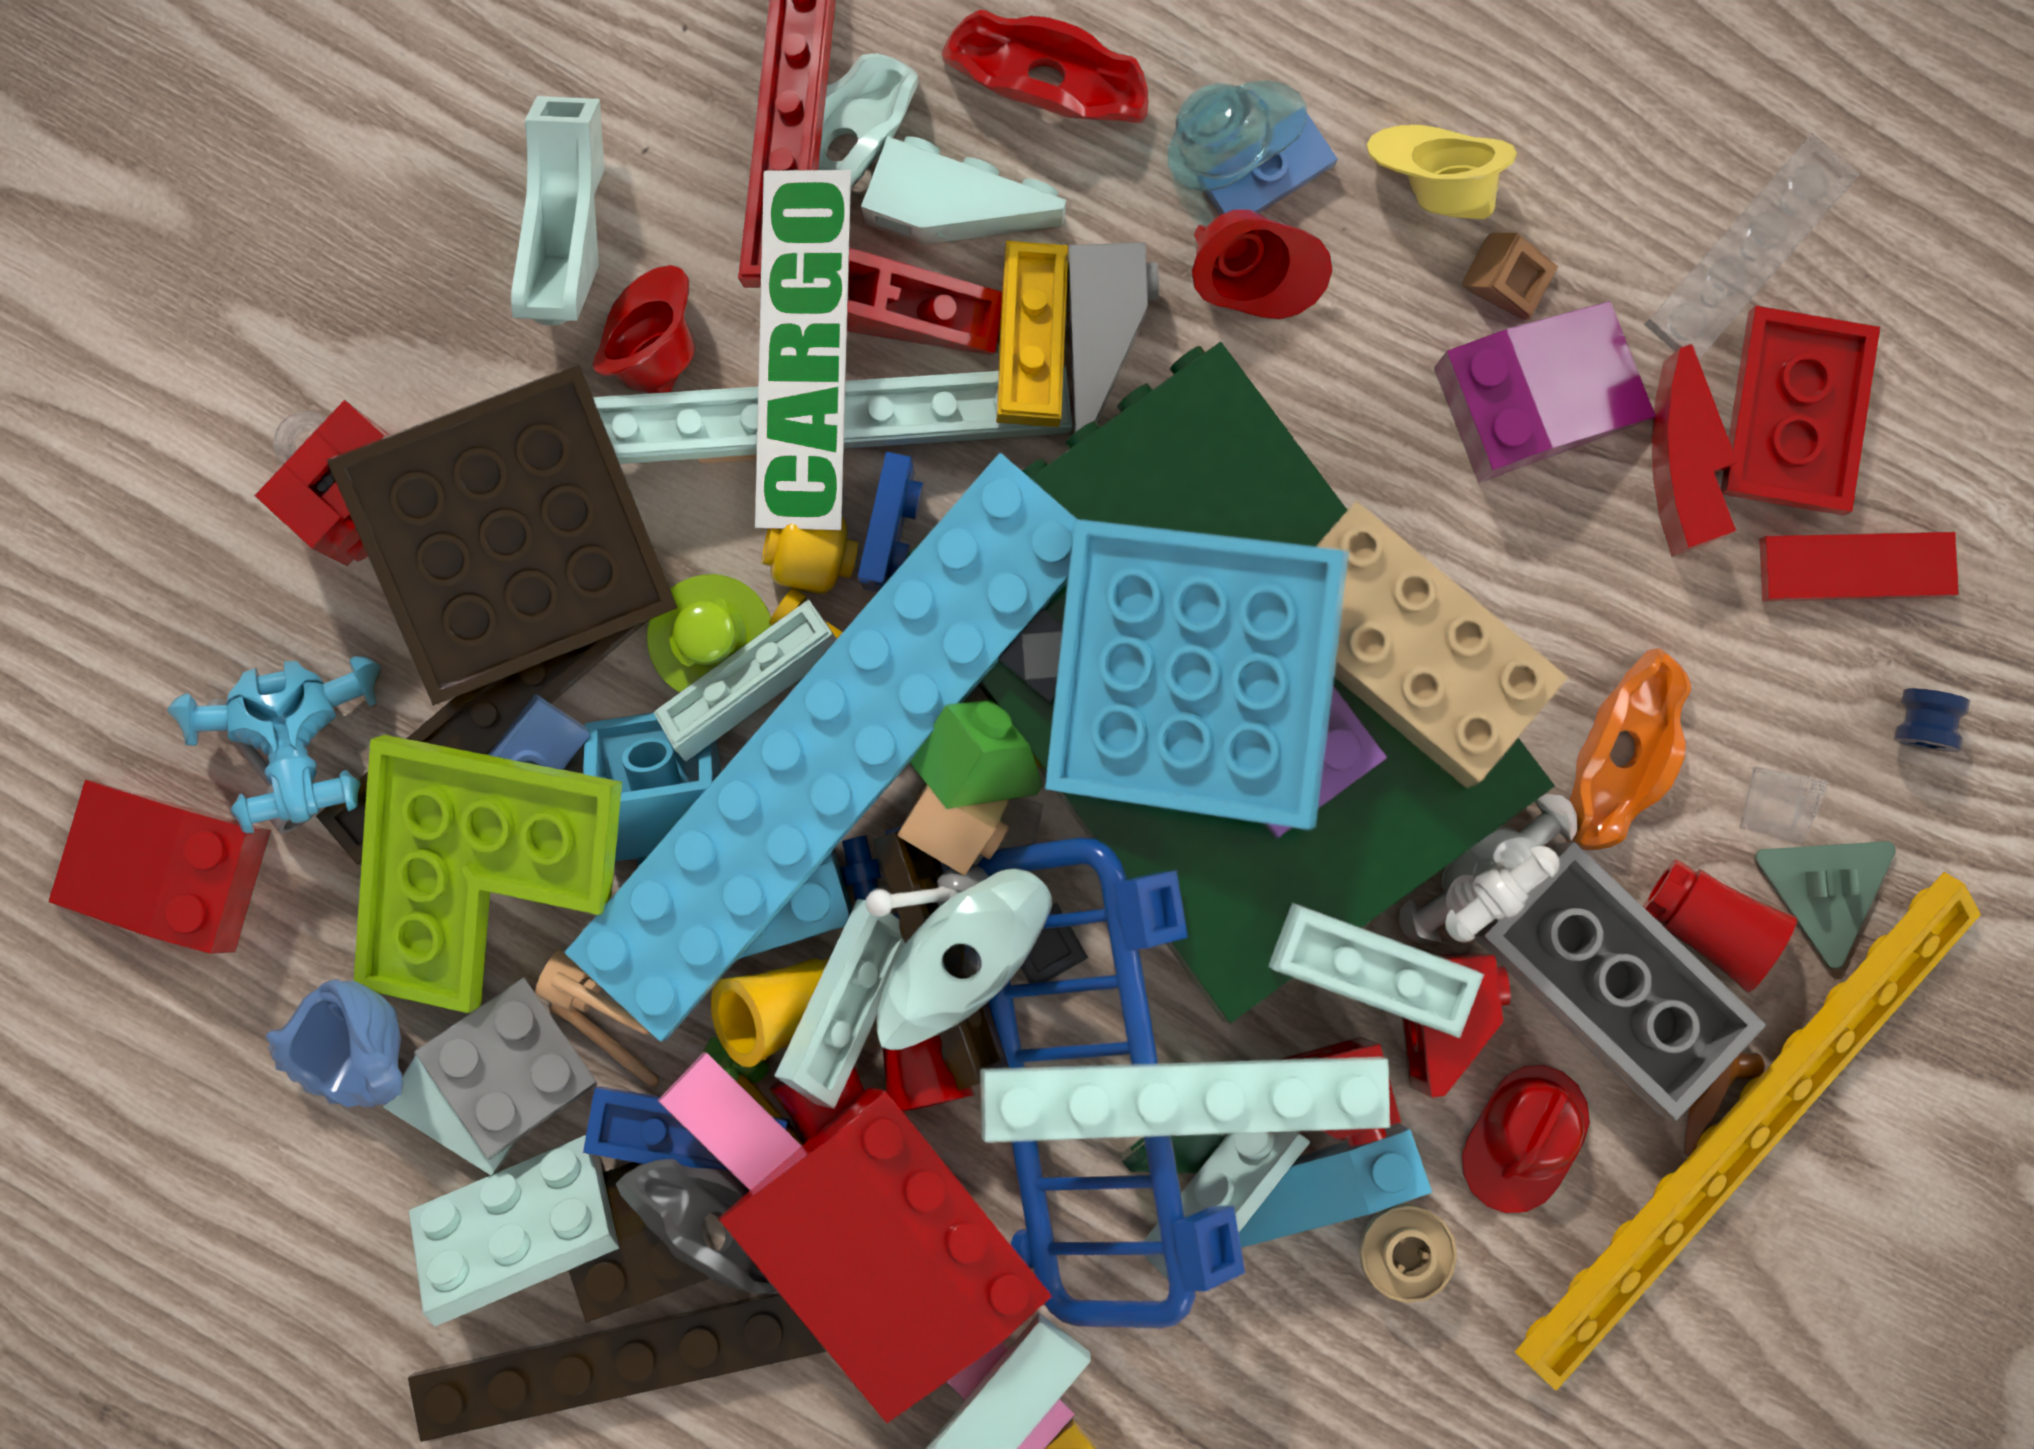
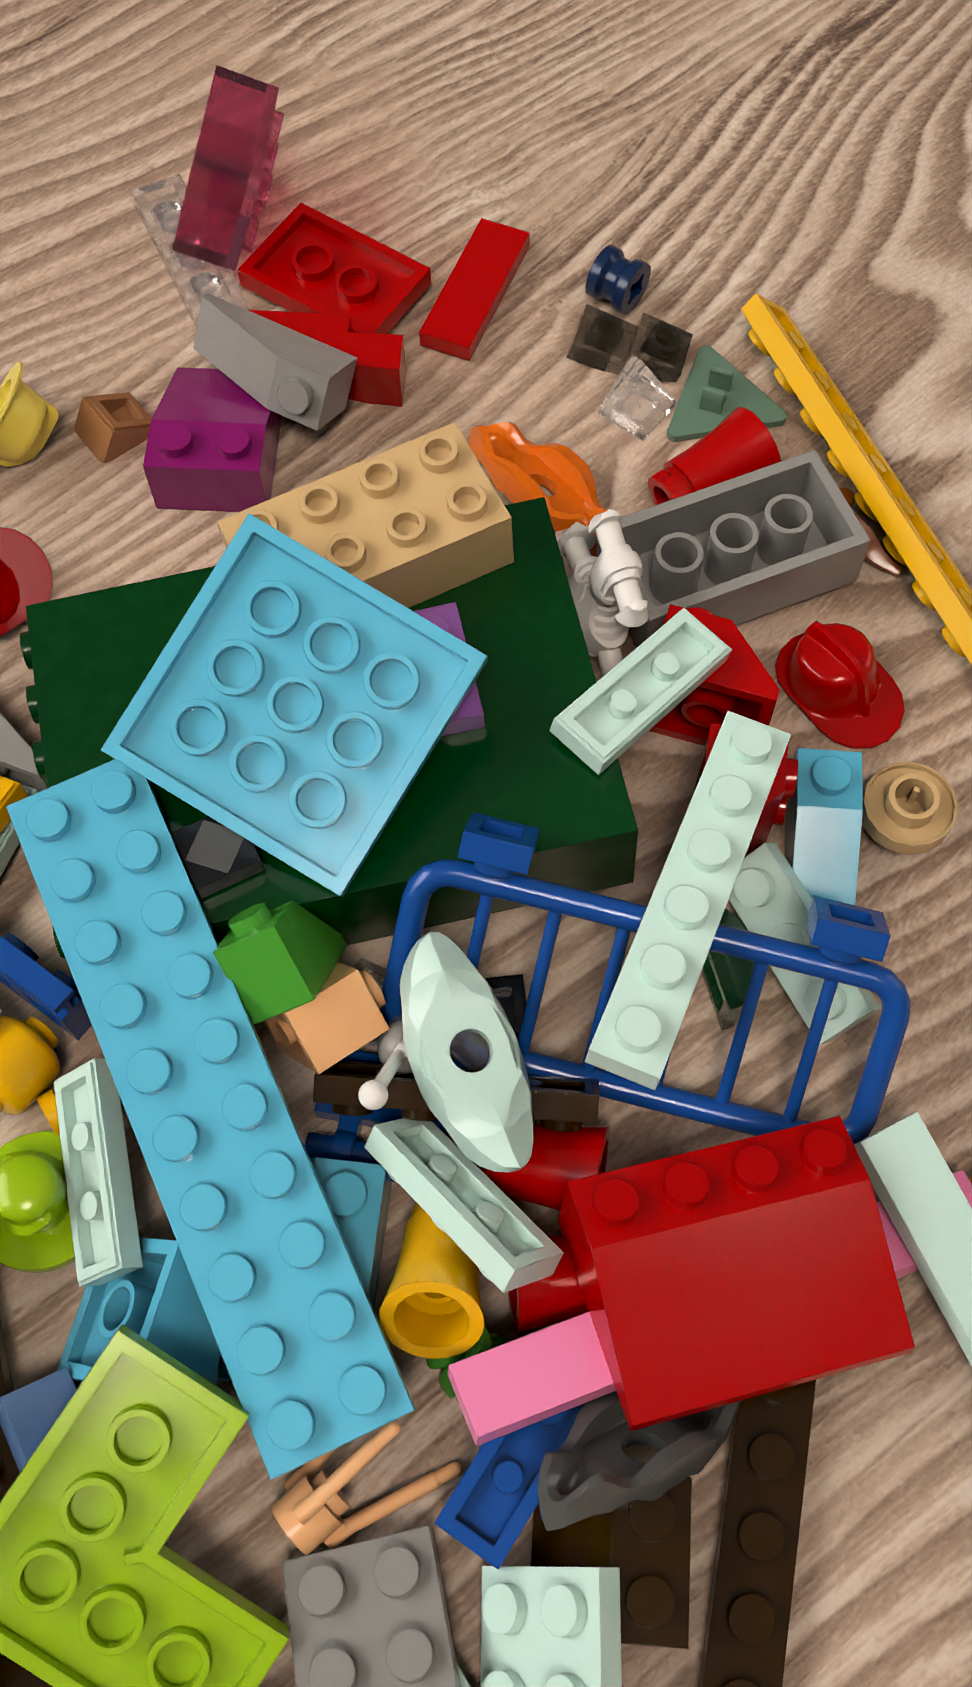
camera: 65 degrees left, 20 degrees down
(1635, 422) = (275, 363): none -> light grey slope
(1852, 758) = (609, 342): none -> clear smoke slope
(1867, 241) = (230, 170): none -> clear pink brick

